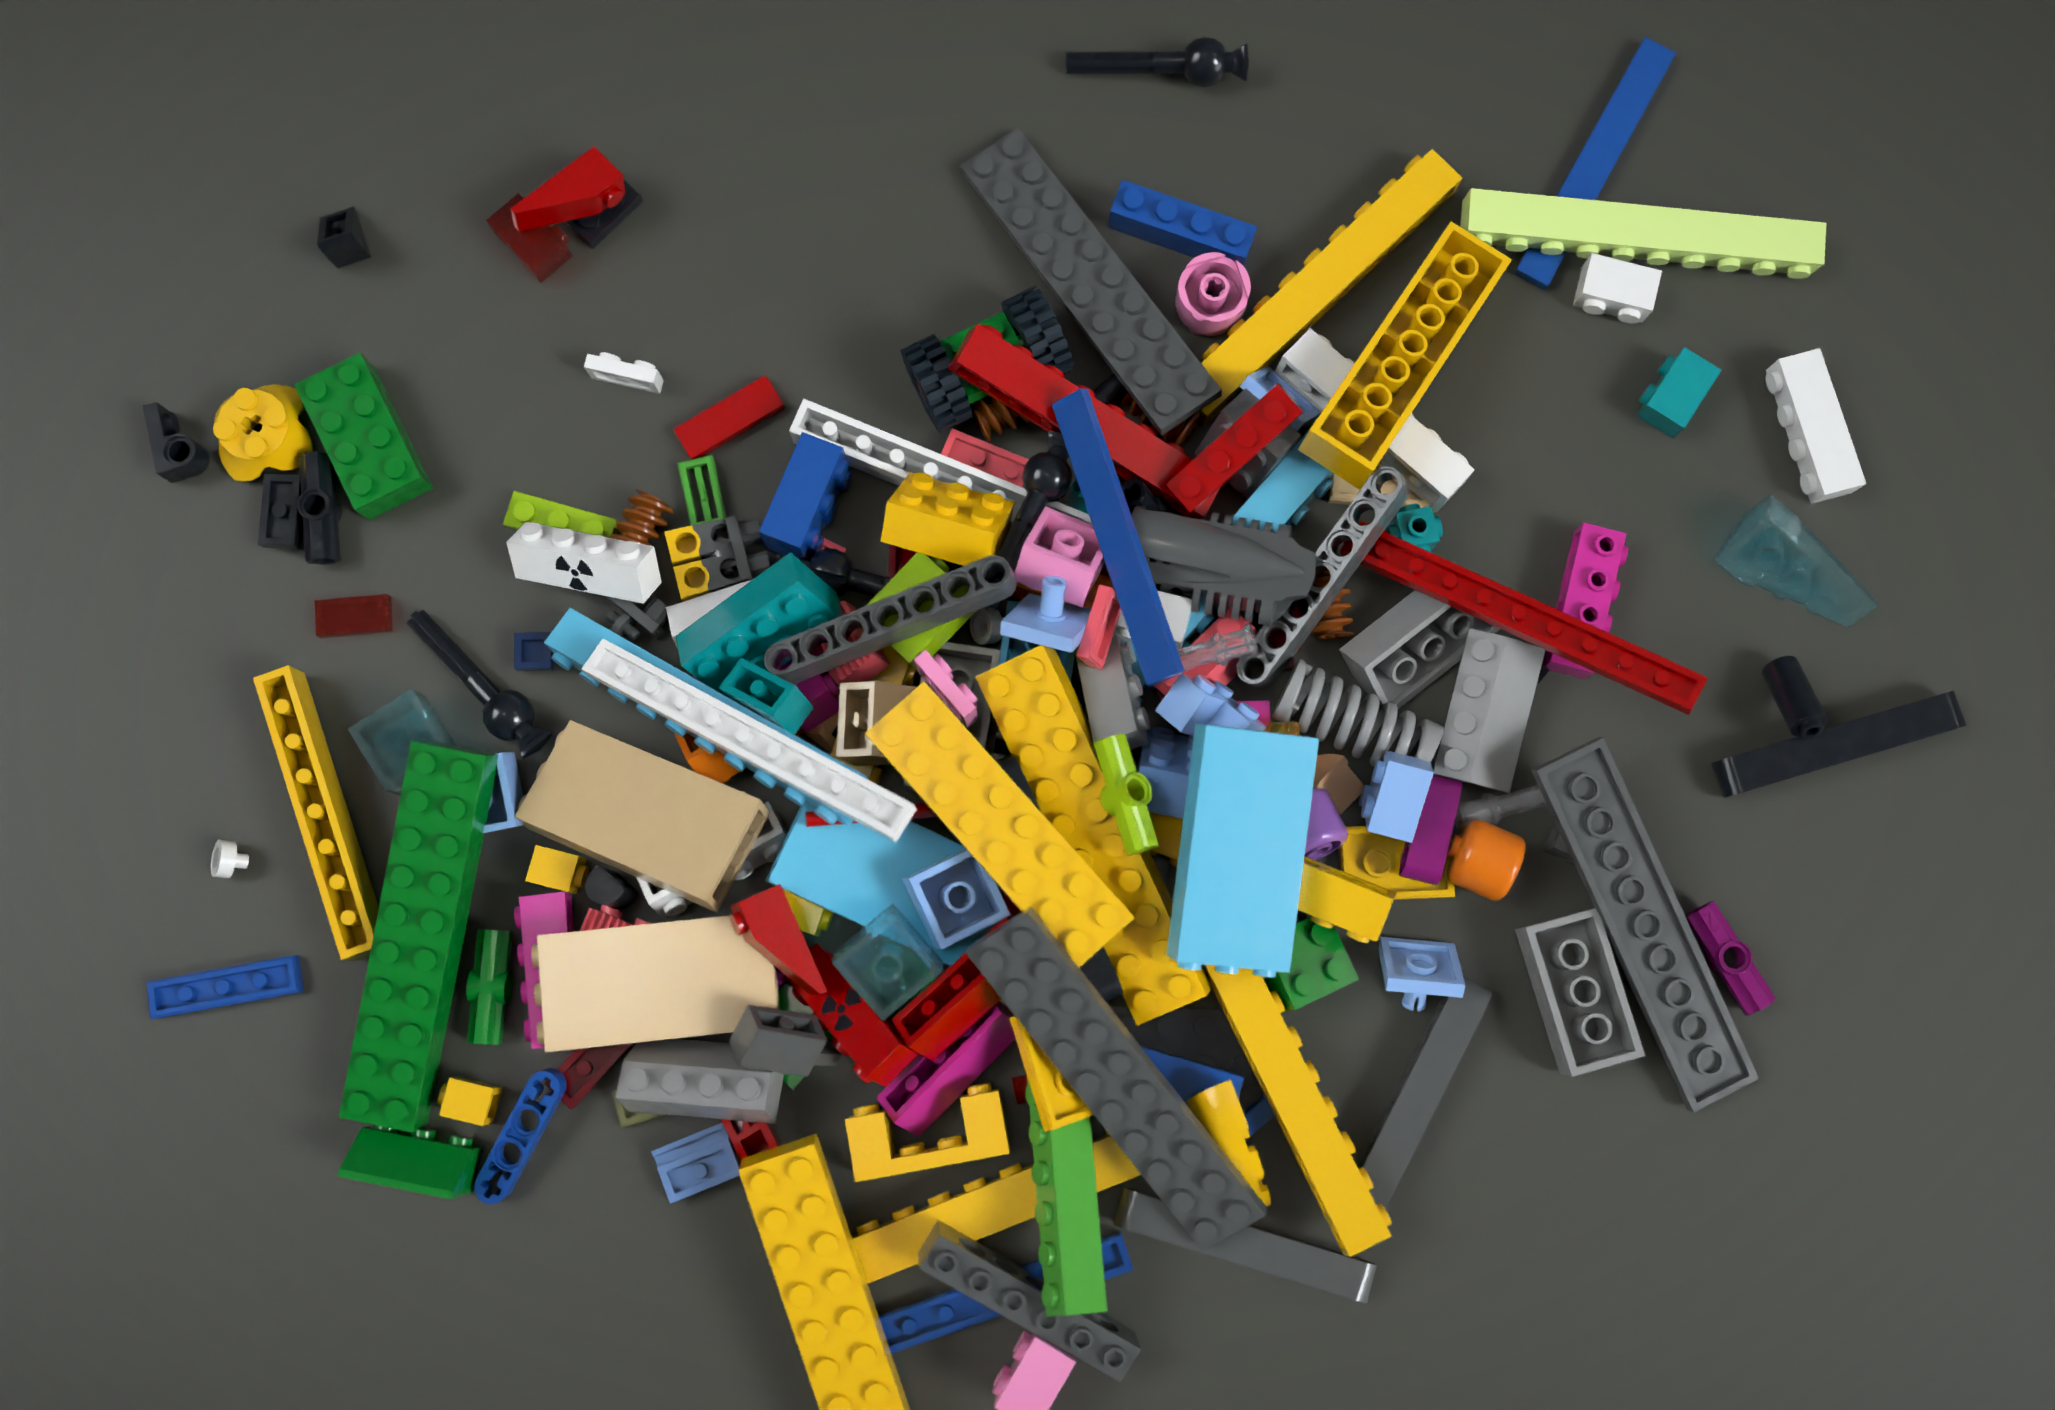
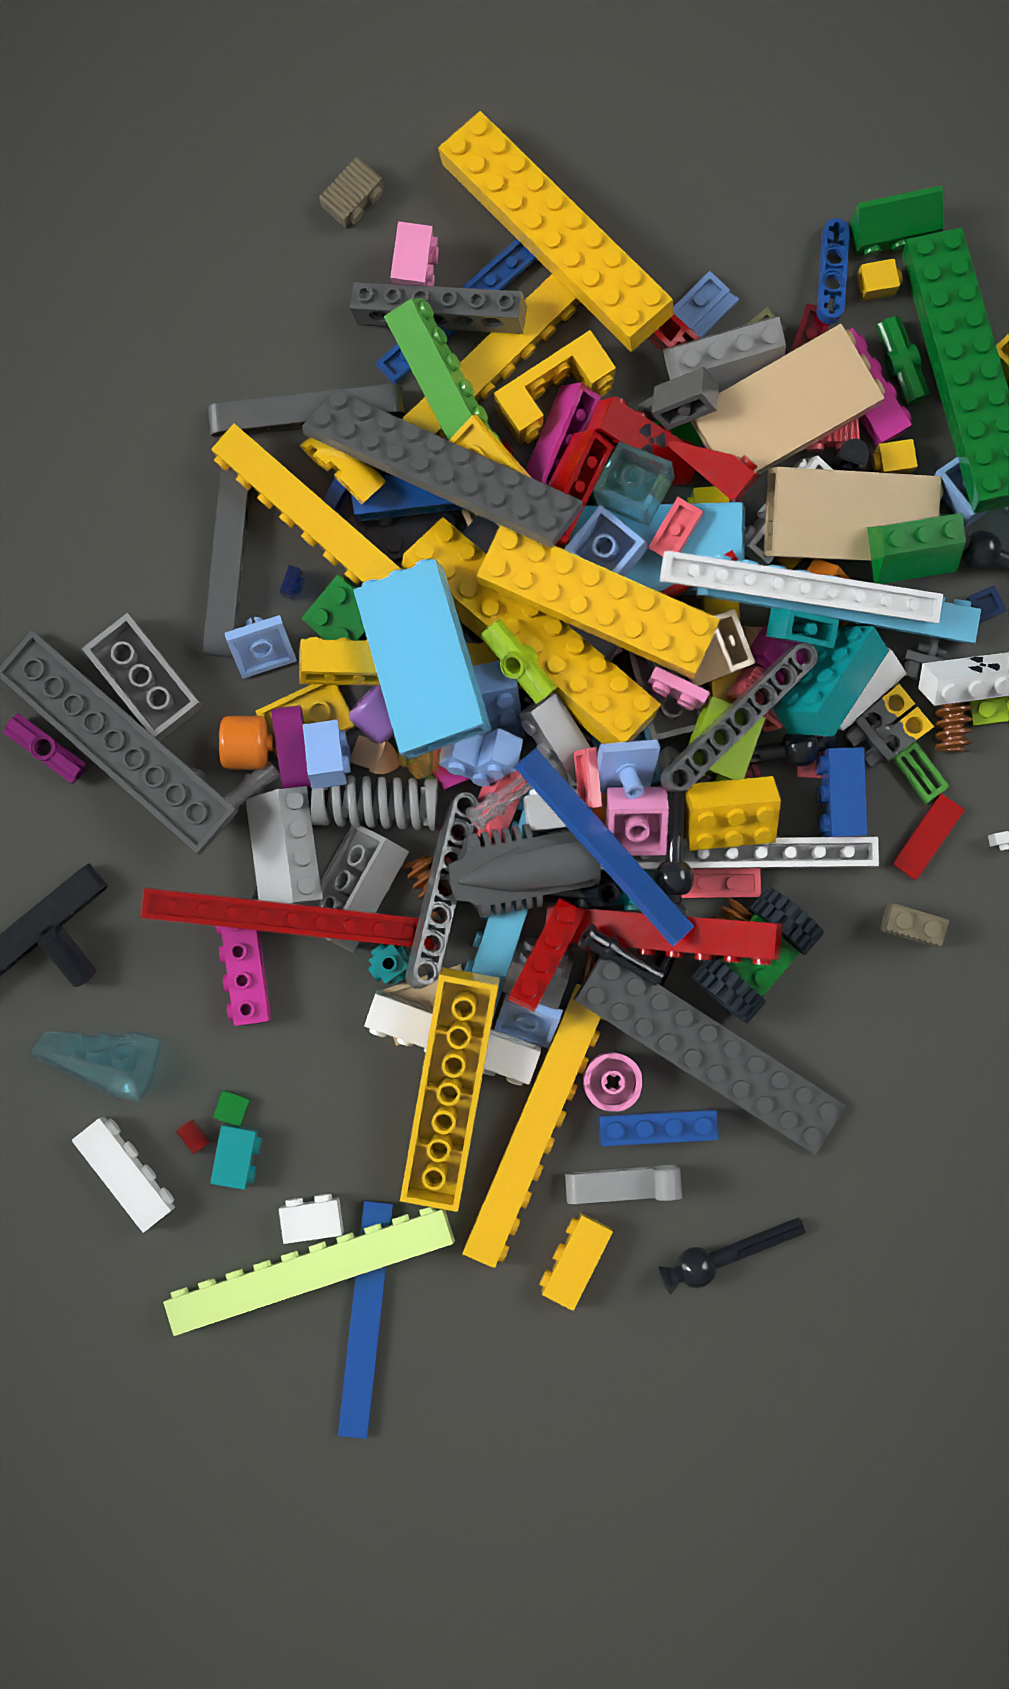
camera: 155 degrees right, 5 degrees up
(584, 744) = (916, 547): none -> green slope
(792, 324) = (914, 925): none -> dark tan brick
(863, 882) = (676, 528): none -> coral plate
(1157, 427) = (610, 946): none -> black pin
(1244, 181) = (624, 1184): none -> light grey beam
(1335, 124) = (575, 1260): none -> yellow brick
(1348, 1032) = (292, 583): none -> clear blue plate
(1660, 450) = (231, 1108): none -> green tile
(1719, 431) = (191, 1140): none -> red piece

